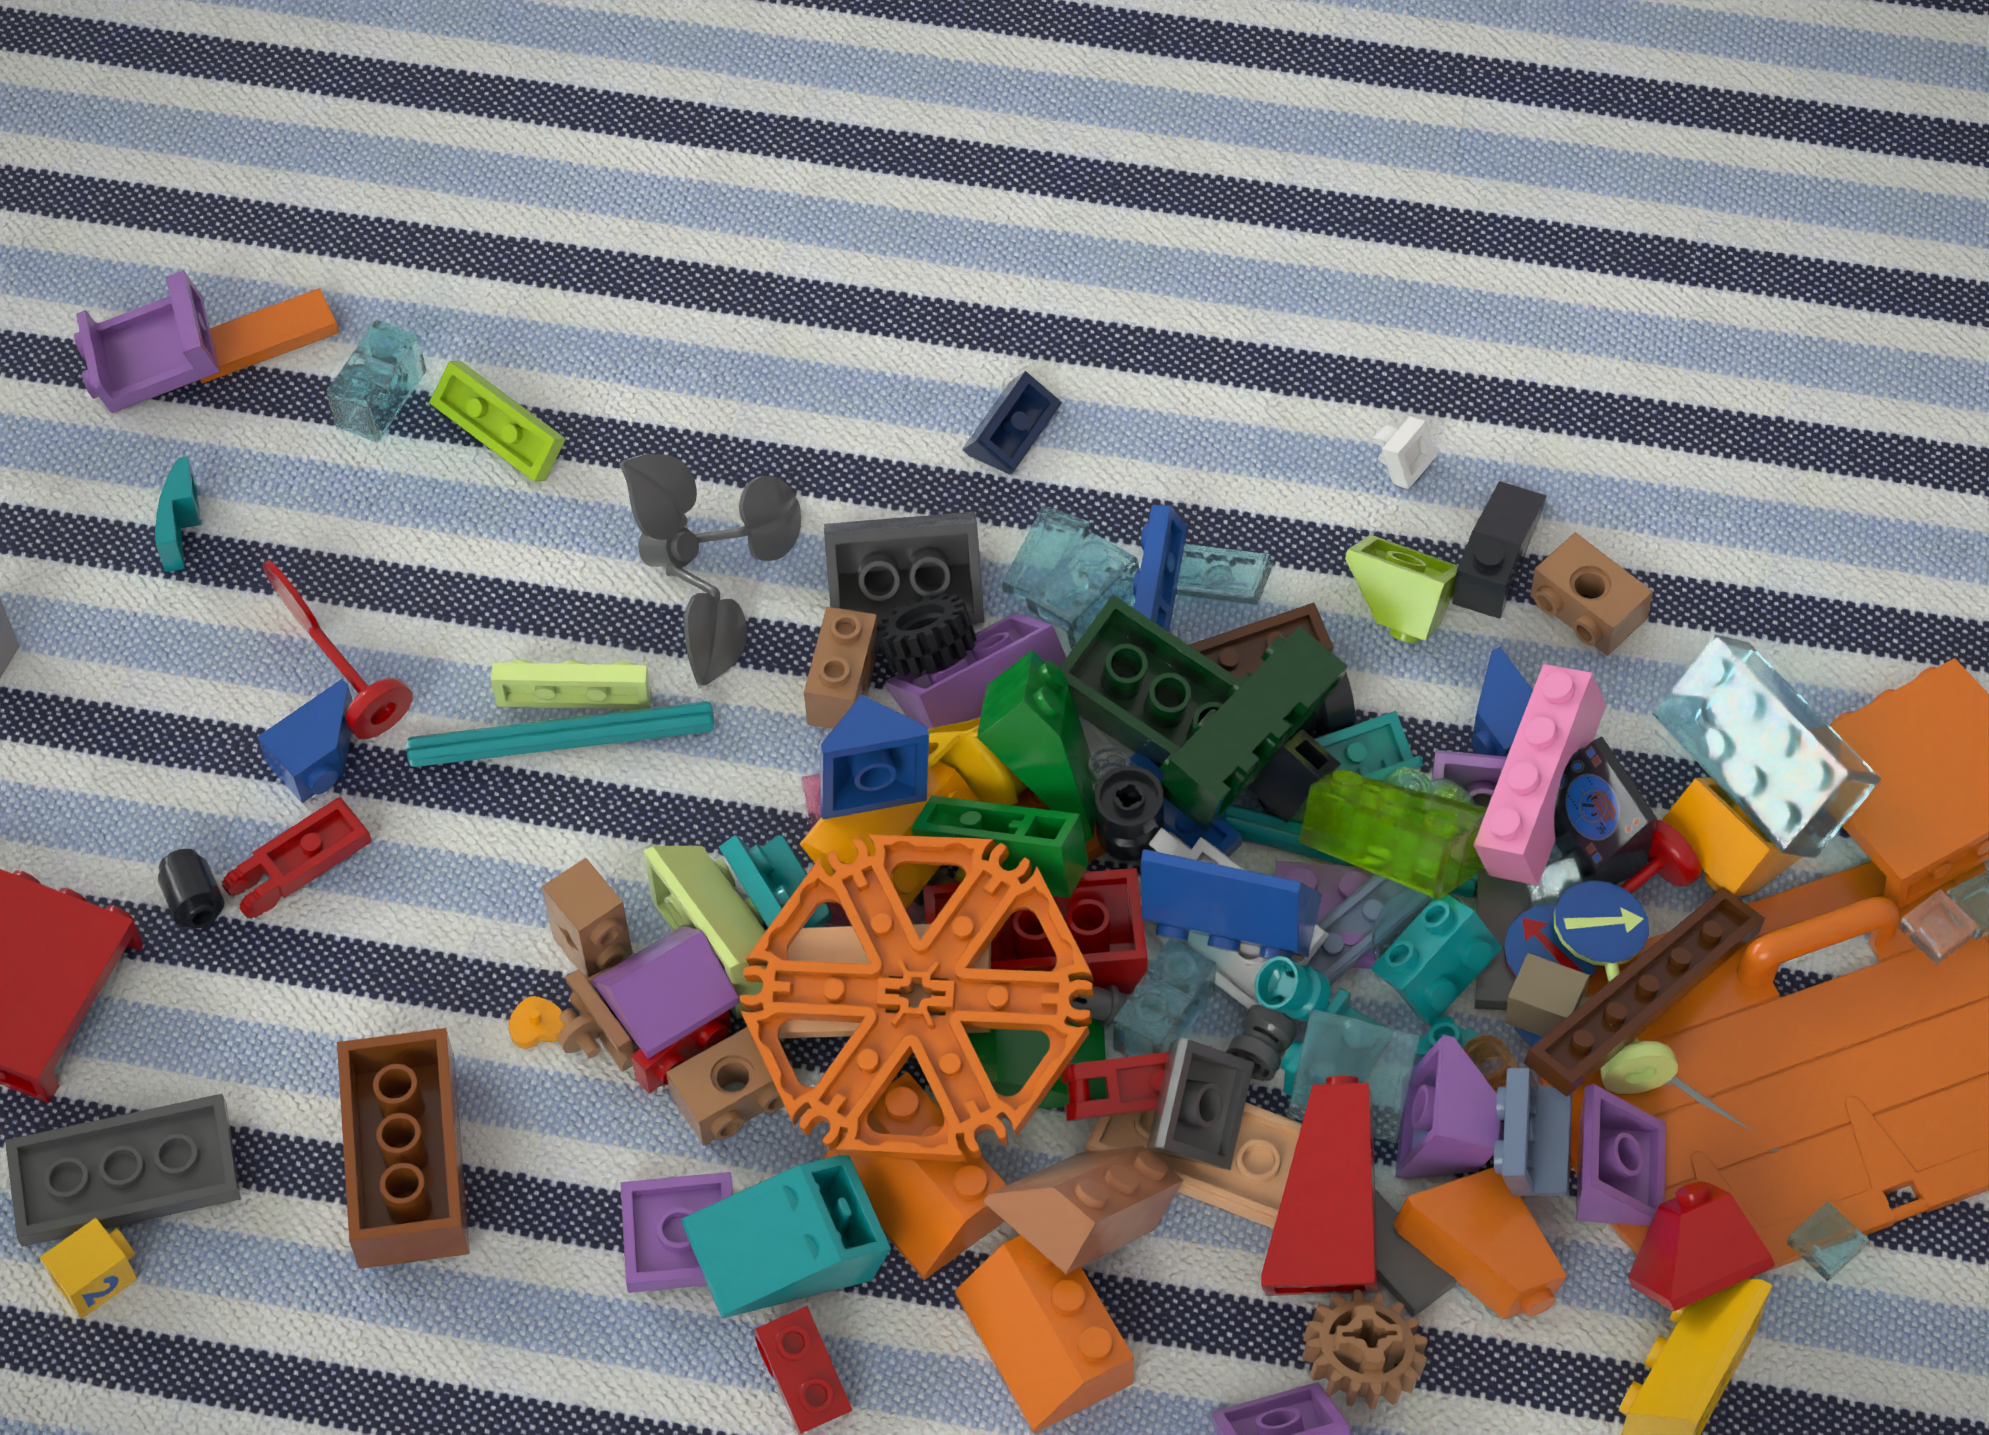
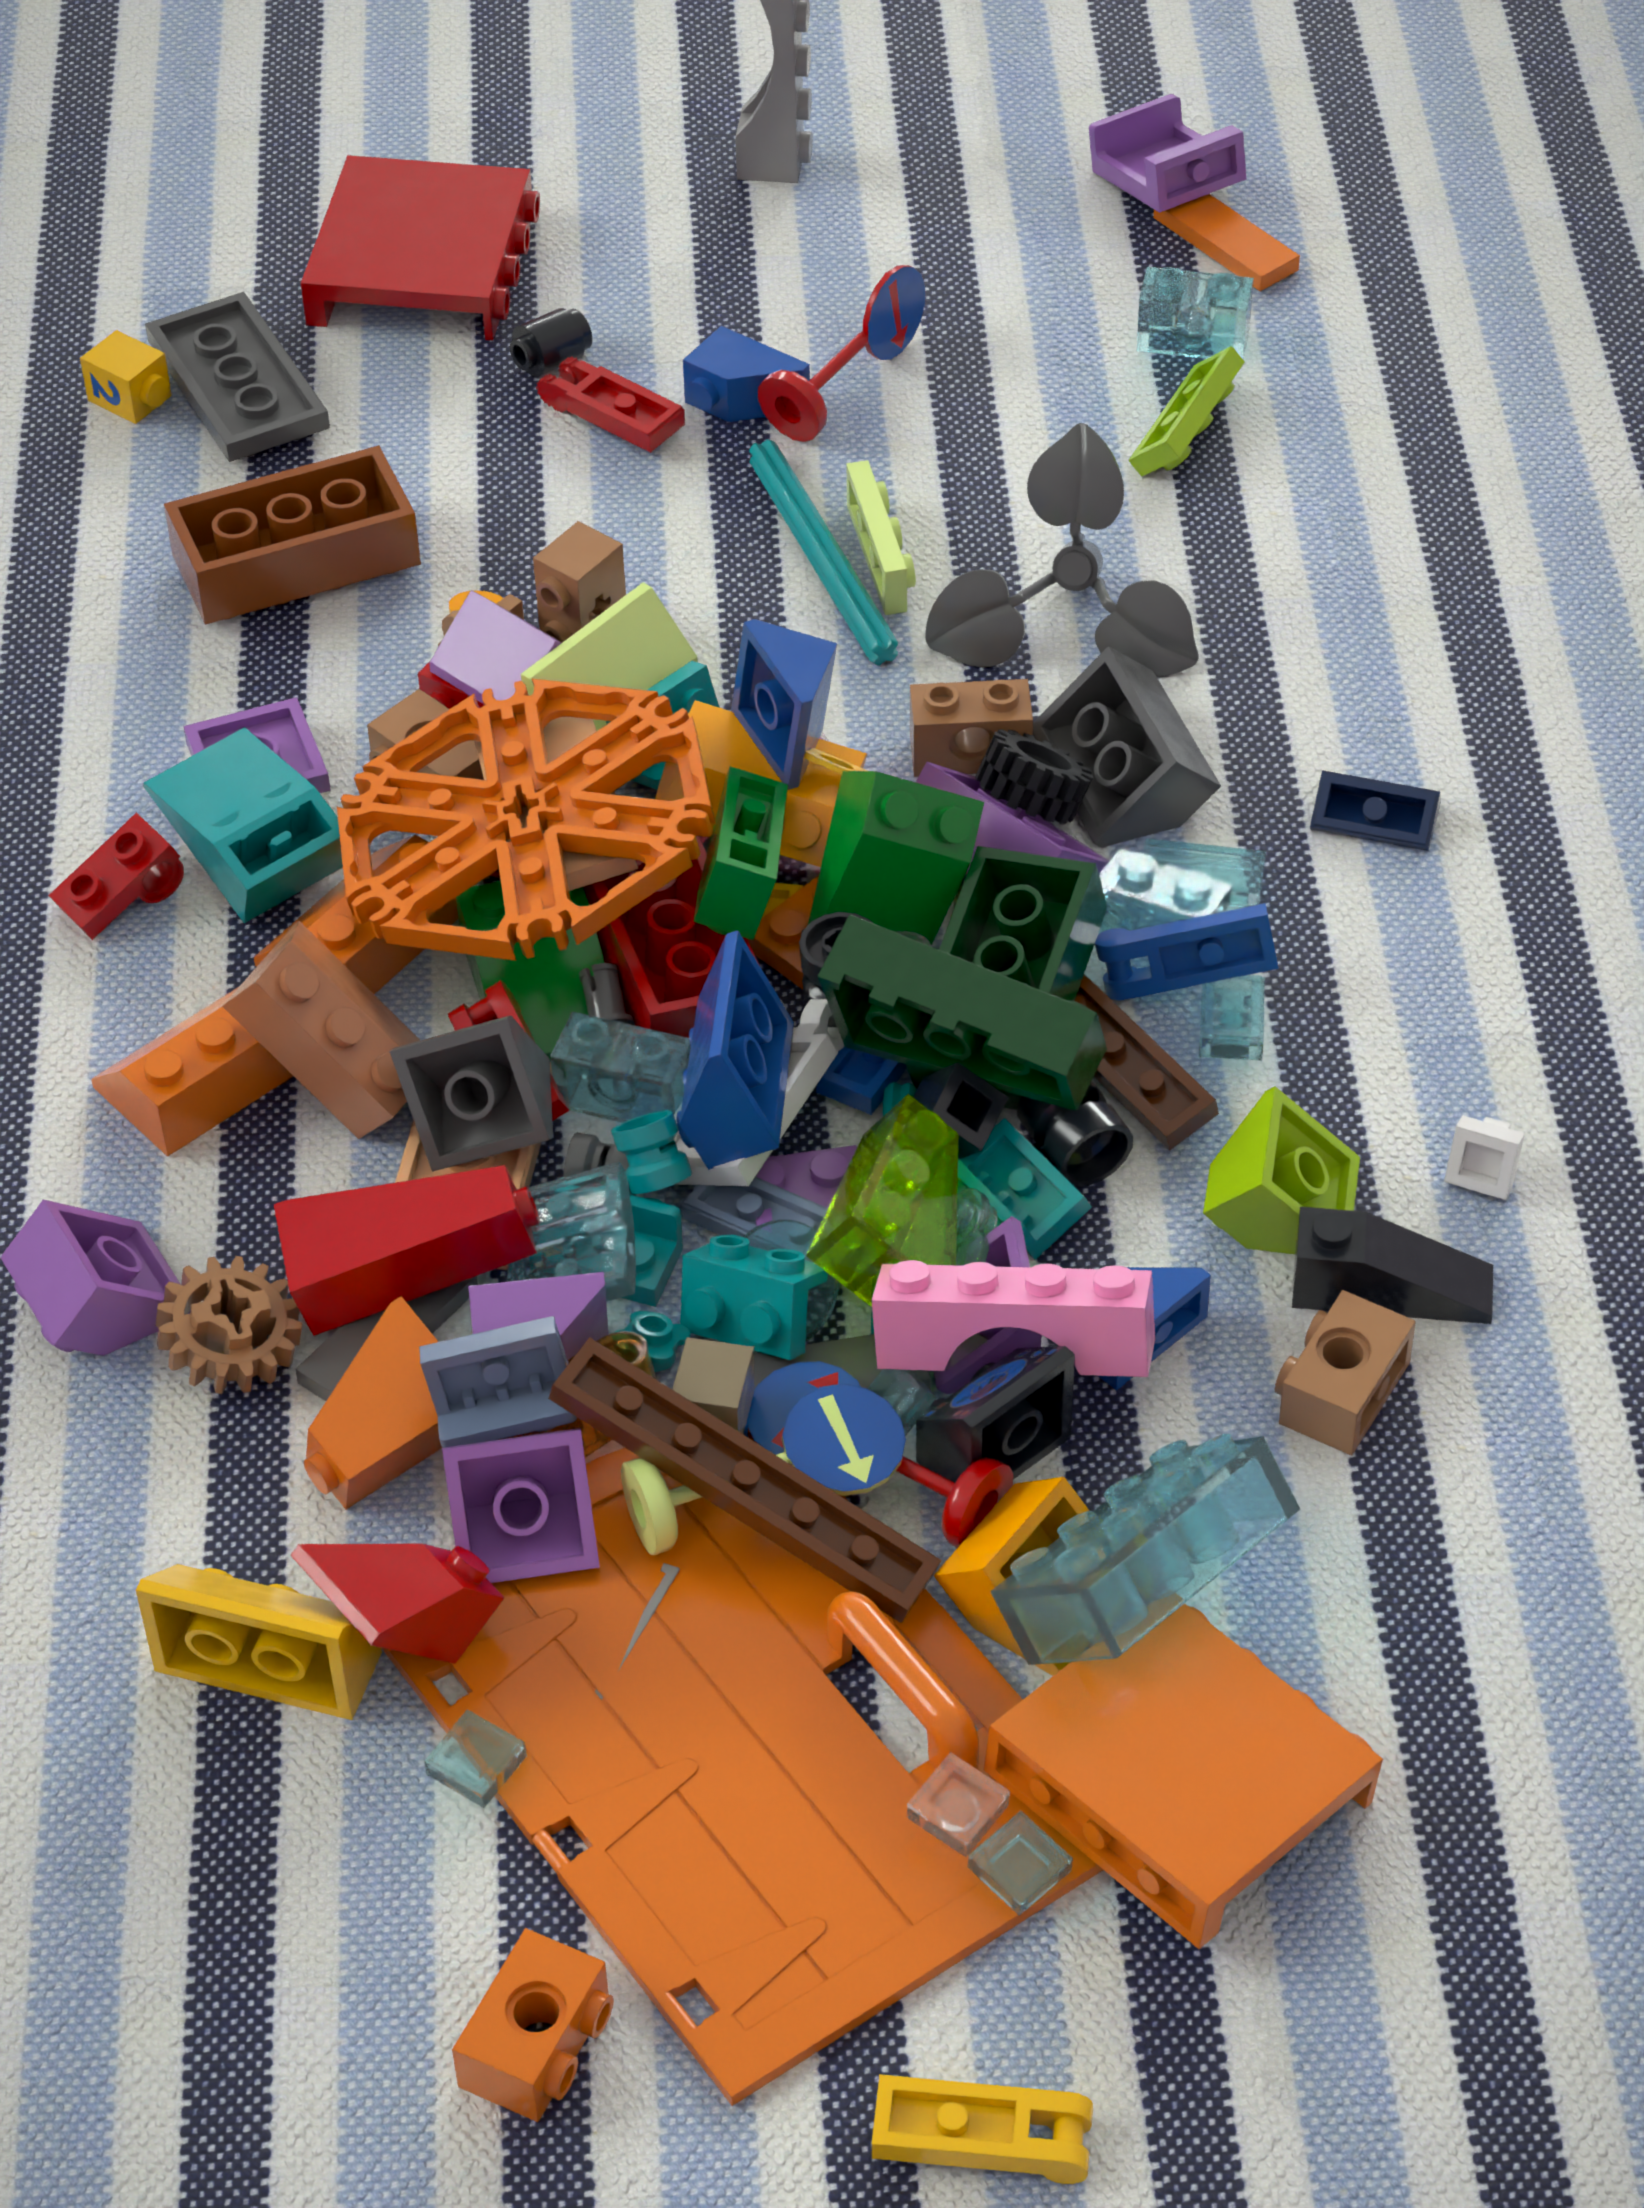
camera: 75 degrees right, 10 degrees down
(176, 510) = (982, 223): teal slope -> none

